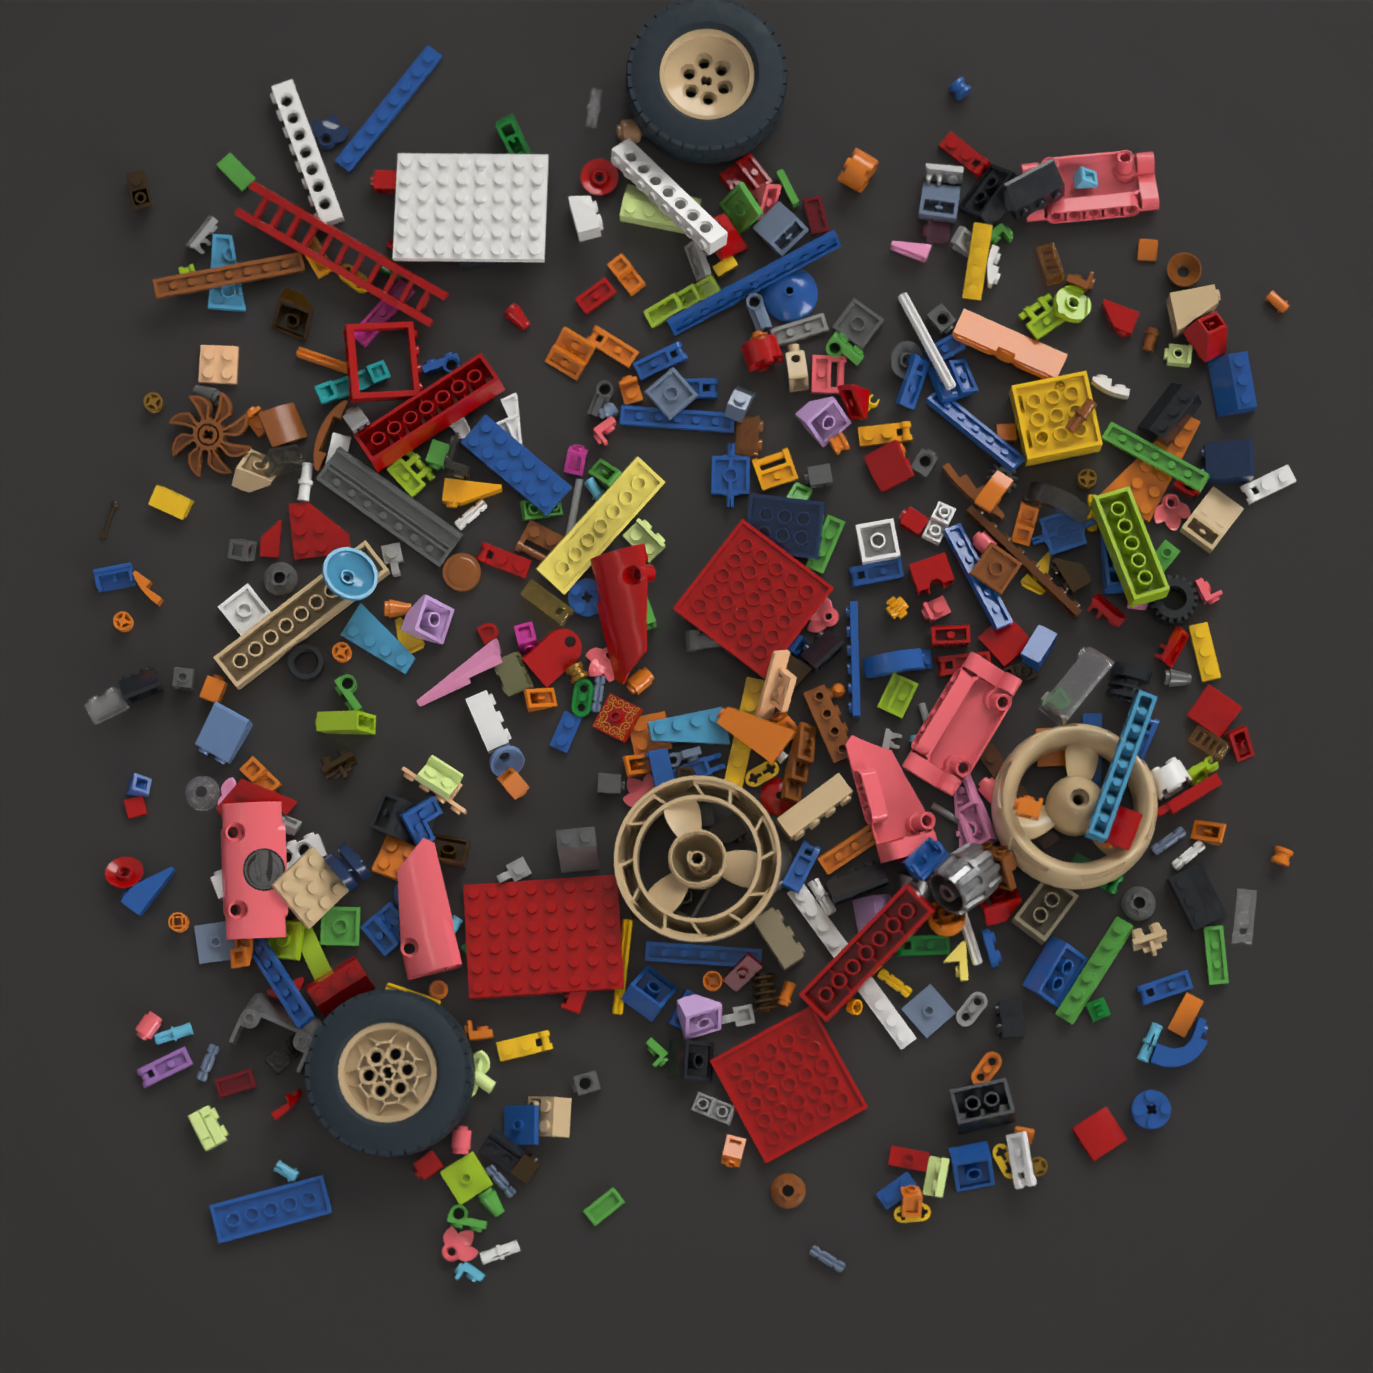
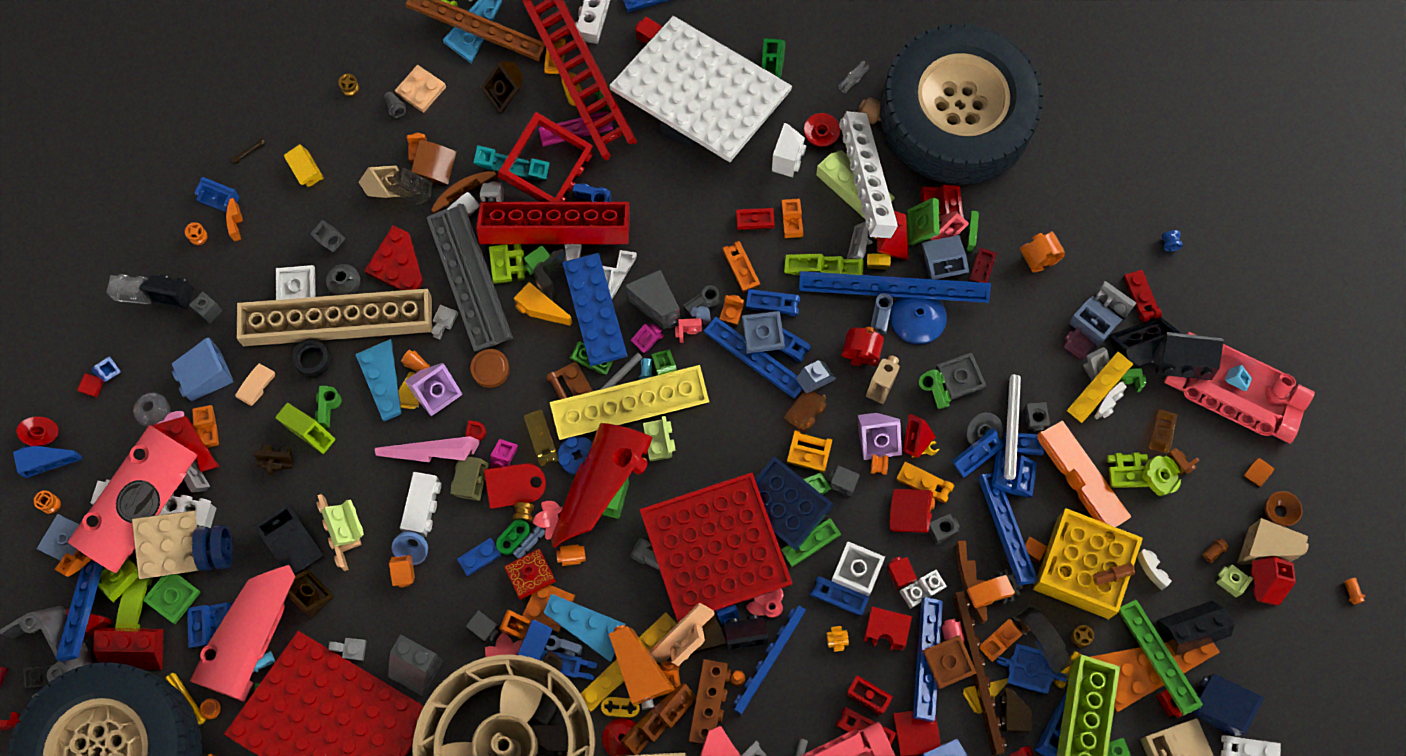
camera: 30 degrees right, 10 degrees down
(213, 689) = (222, 331): orange brick -> none
(219, 430) = (372, 133): dark orange piece -> none
(271, 541) = (357, 245): red slope -> none
(275, 715) = (254, 384): none -> light nougat slope
(305, 482) = (418, 217): white pin -> none
(321, 359) = (500, 131): orange axle -> none
(339, 649) = (342, 366): orange wheel -> none
(353, 566) = (395, 295): dark azure dish -> none
(391, 857) = (255, 564): orange plate -> none
(417, 818) = (299, 545): blue plate -> none
(470, 514) = (531, 326): white axle -> none
(504, 560) = (531, 381): red plate -> none
(516, 316) = (679, 193): red cone -> none
(540, 699) = (476, 513): orange slope -> none
(562, 424) = (654, 299): none -> dark grey slope
(570, 353) = (703, 250): orange slope -> none
(730, 475) = (768, 432): blue plate -> none
(800, 329) = (908, 351): light grey tile -> none
(822, 374) = (904, 396): coral plate -> none
(896, 662) = (806, 687): blue arch -> none
(897, 695) = (787, 718): lime plate -> none
(914, 250) = (1049, 346): bright pink slope -> none
(935, 609) = (871, 663): coral bracket -> none
(1120, 318) = (1198, 514): red slope -> none
(1171, 514) = (1141, 719): coral plate -> none
(1232, 384) = (1269, 637): blue slope -> none

